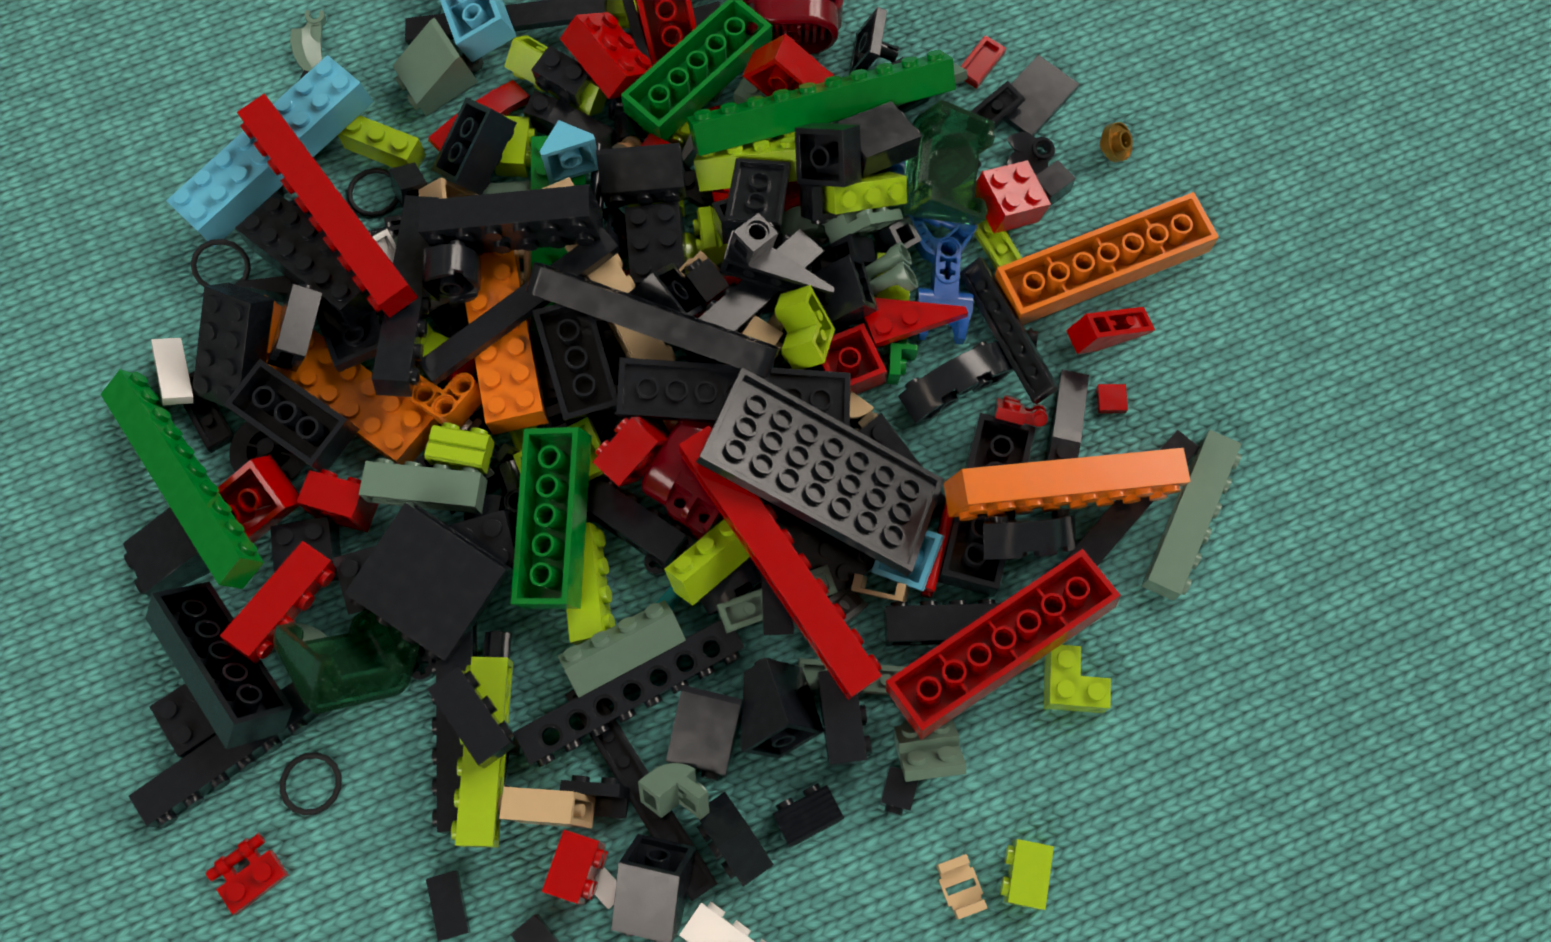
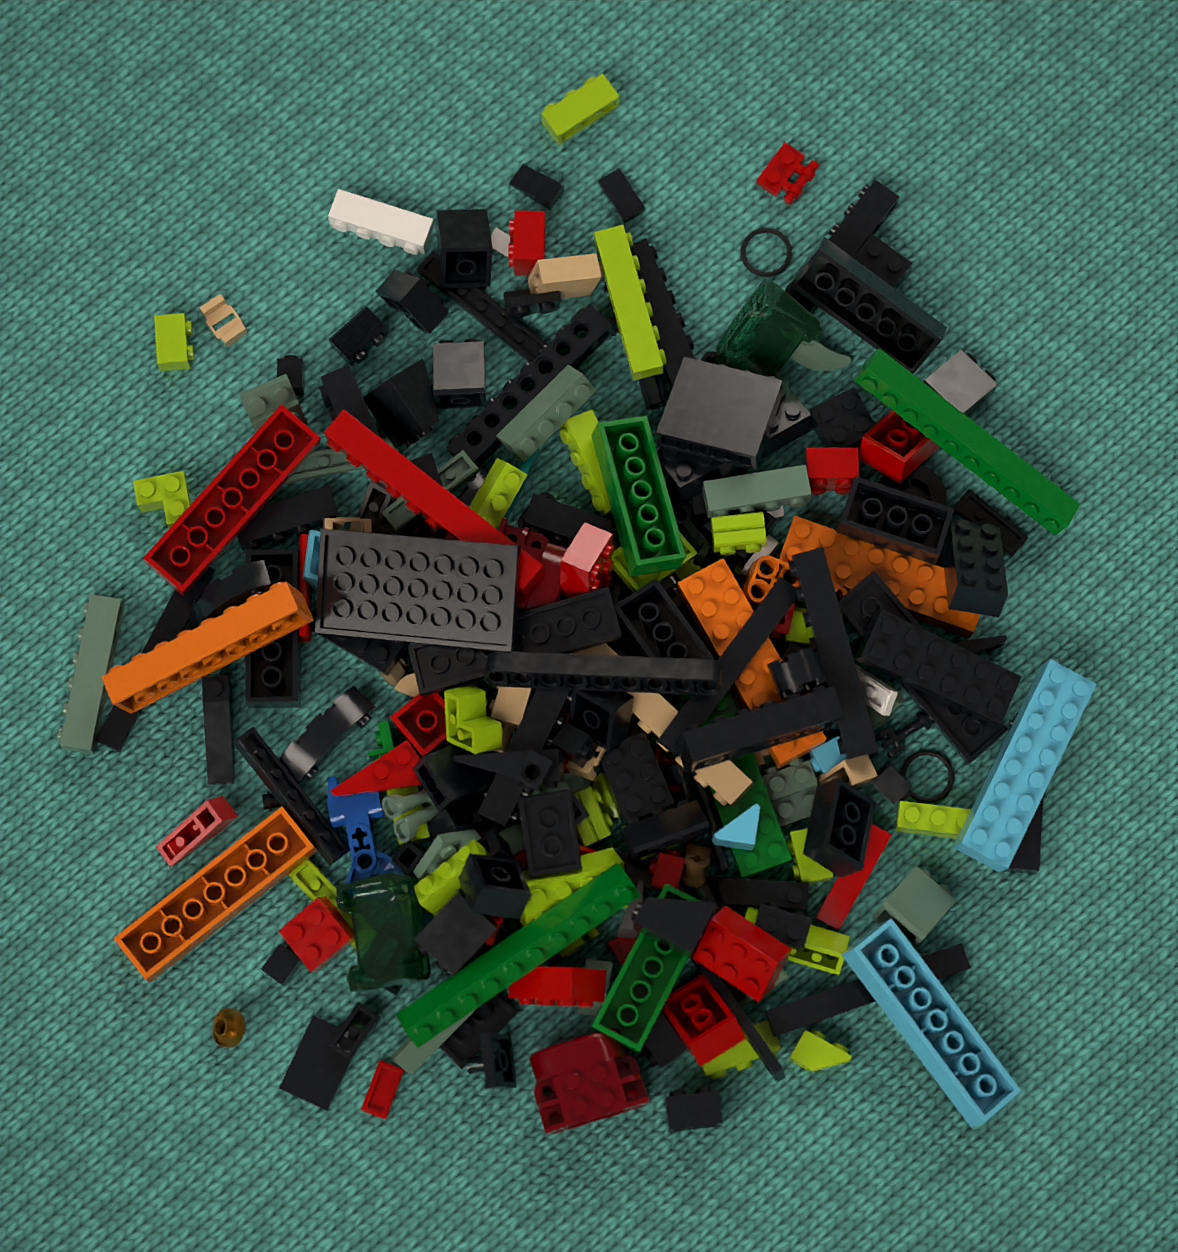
camera: 165 degrees right, 5 degrees up
(172, 371) = (1028, 543): white tile -> none
(199, 250) = (1028, 637): black piece -> none
(279, 602) = (835, 361): red brick -> none
(295, 327) = (920, 590): brick -> none
(307, 41) = (1054, 907): sand green piece -> none
(329, 209) = (934, 699): red brick -> none
(472, 716) = (641, 315): black brick -> none
(660, 73) = (673, 922): none -> black slope
(673, 785) = (473, 324): sand green brick -> none
(1013, 411) = (270, 713): red plate -> none
(1025, 149) = (313, 991): black plate -> none
(1111, 398) = (182, 766): red tile -> none

